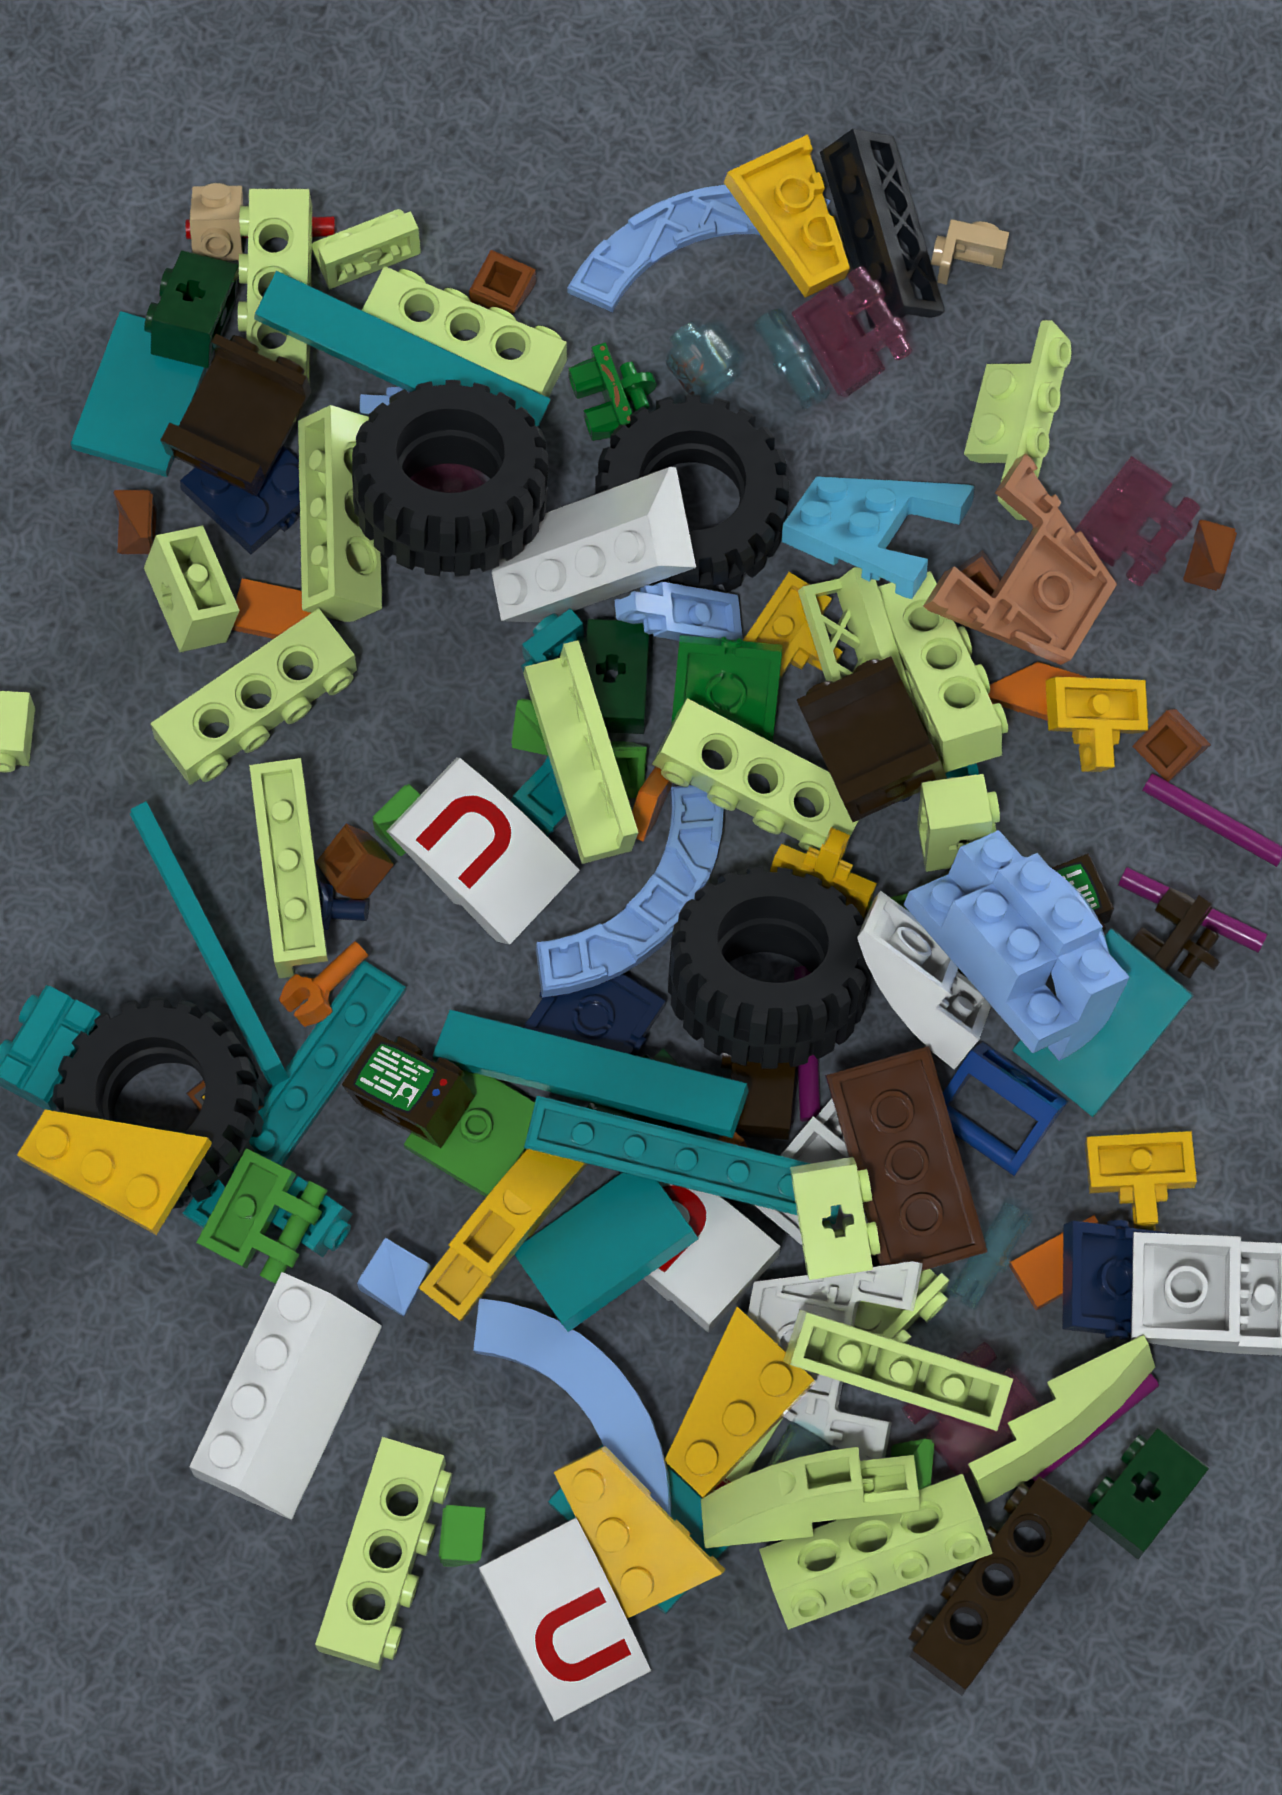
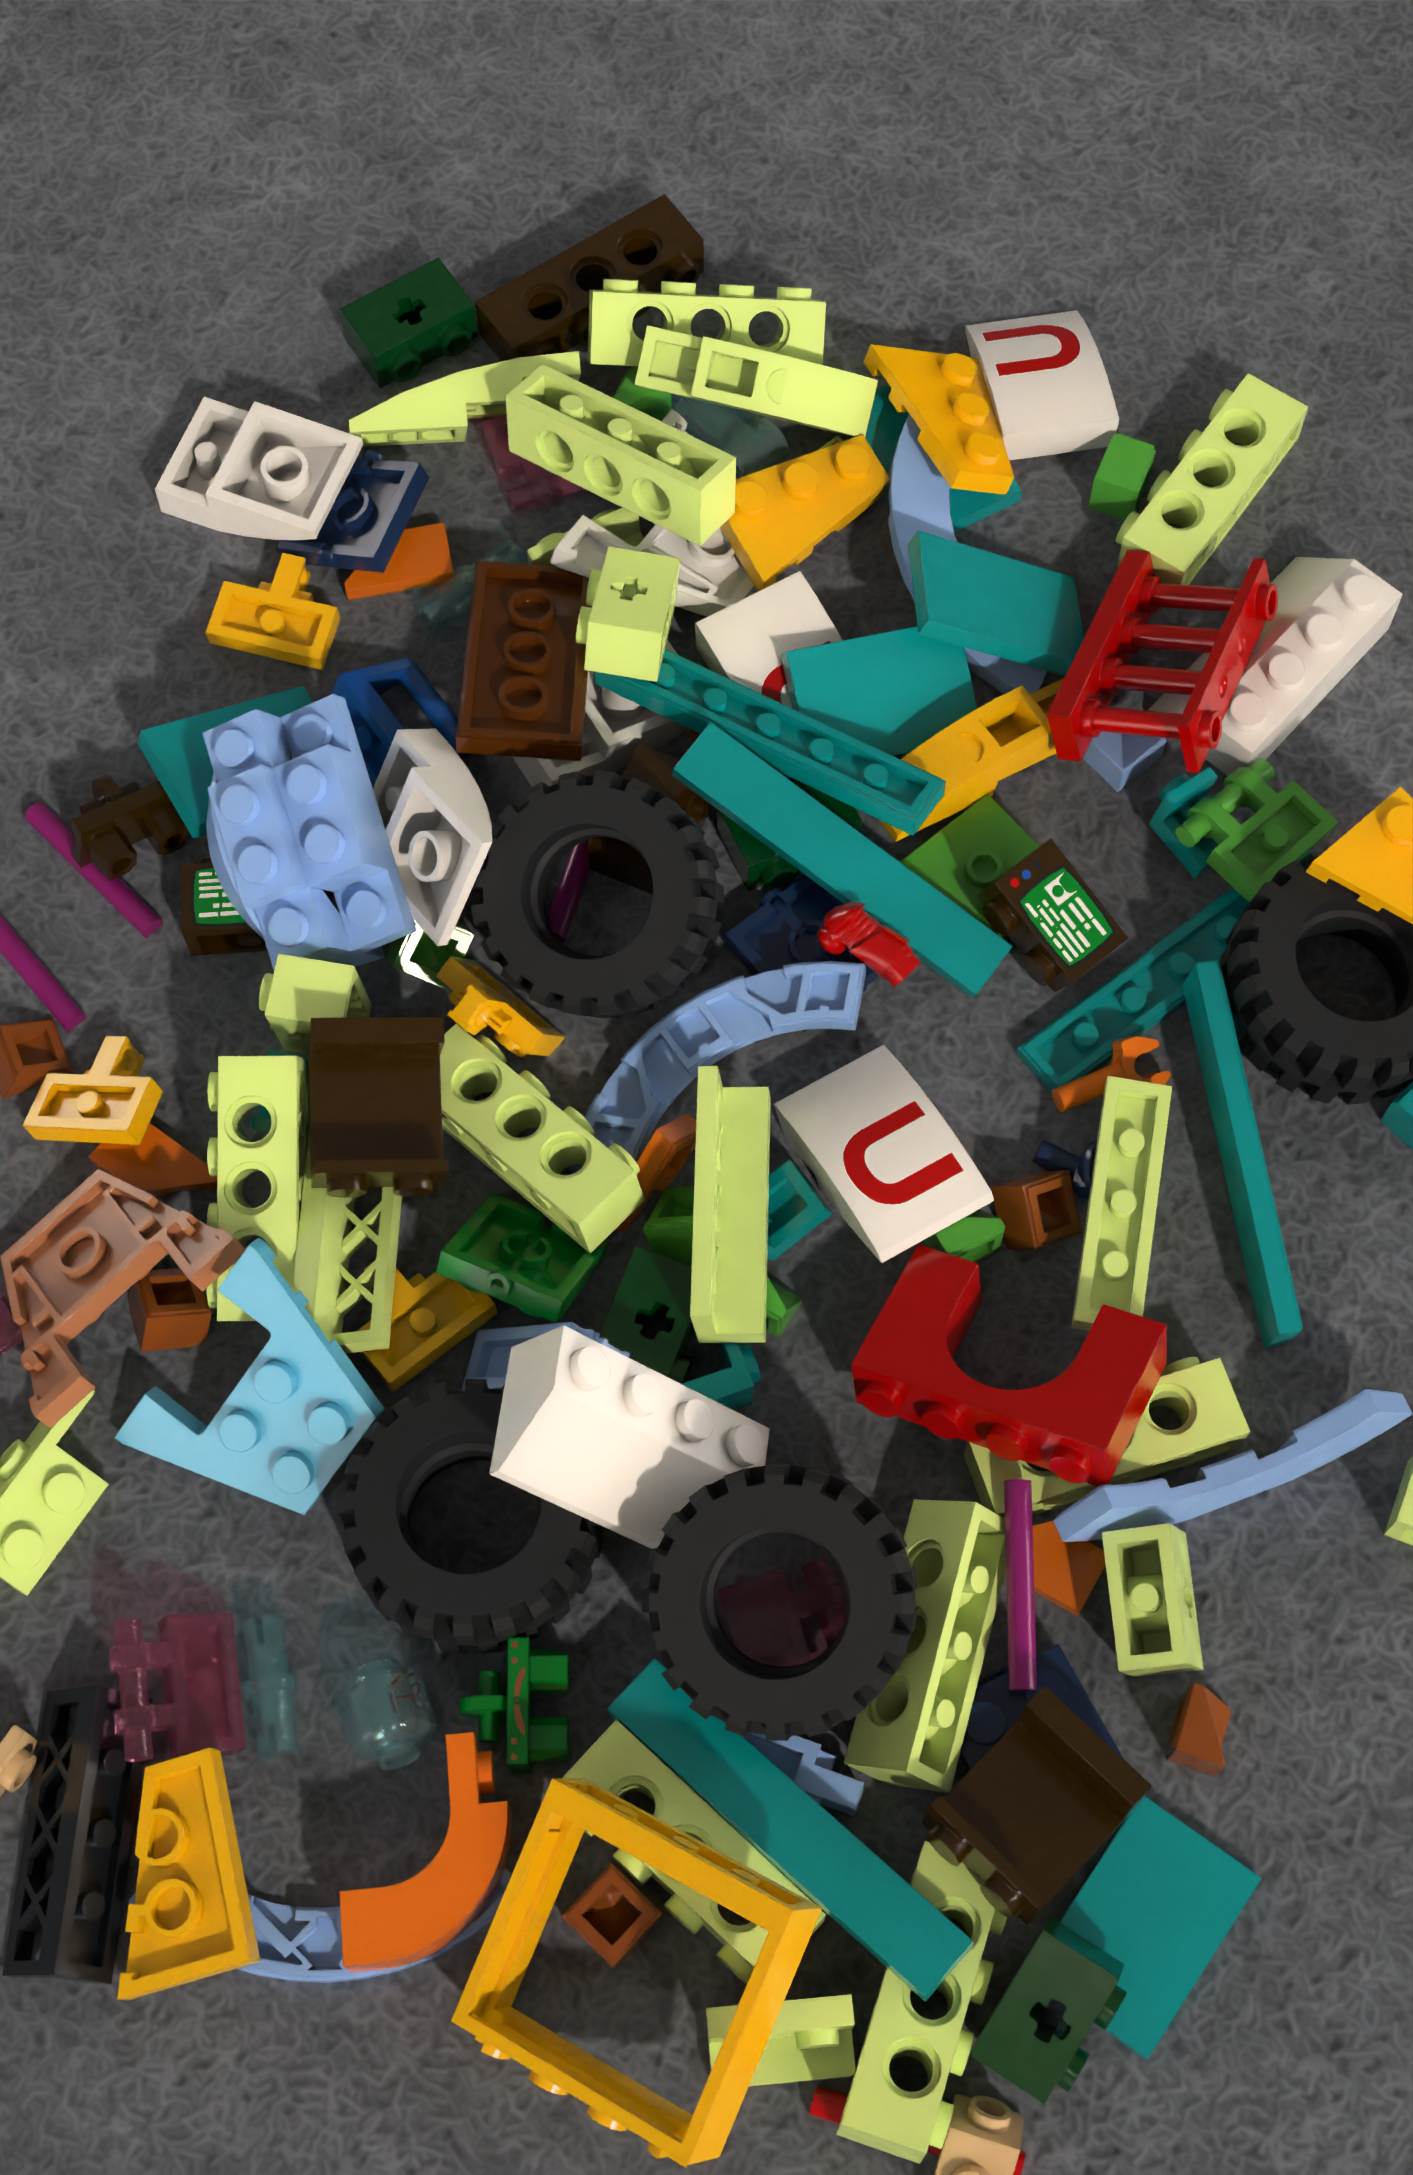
camera: 160 degrees left, 5 degrees down
(167, 690) = (1236, 1477): none -> light blue tile
(288, 563) = (1020, 1585): none -> magenta bar
(409, 688) = (1066, 1425): none -> red arch
(425, 1310) = (1122, 630): none -> red fence
(456, 287) = (565, 2068): none -> yellow window
(533, 1353) = (994, 603): none -> teal tile
(545, 1010) = (870, 942): none -> red arm
(626, 239) = (434, 1907): none -> orange arch

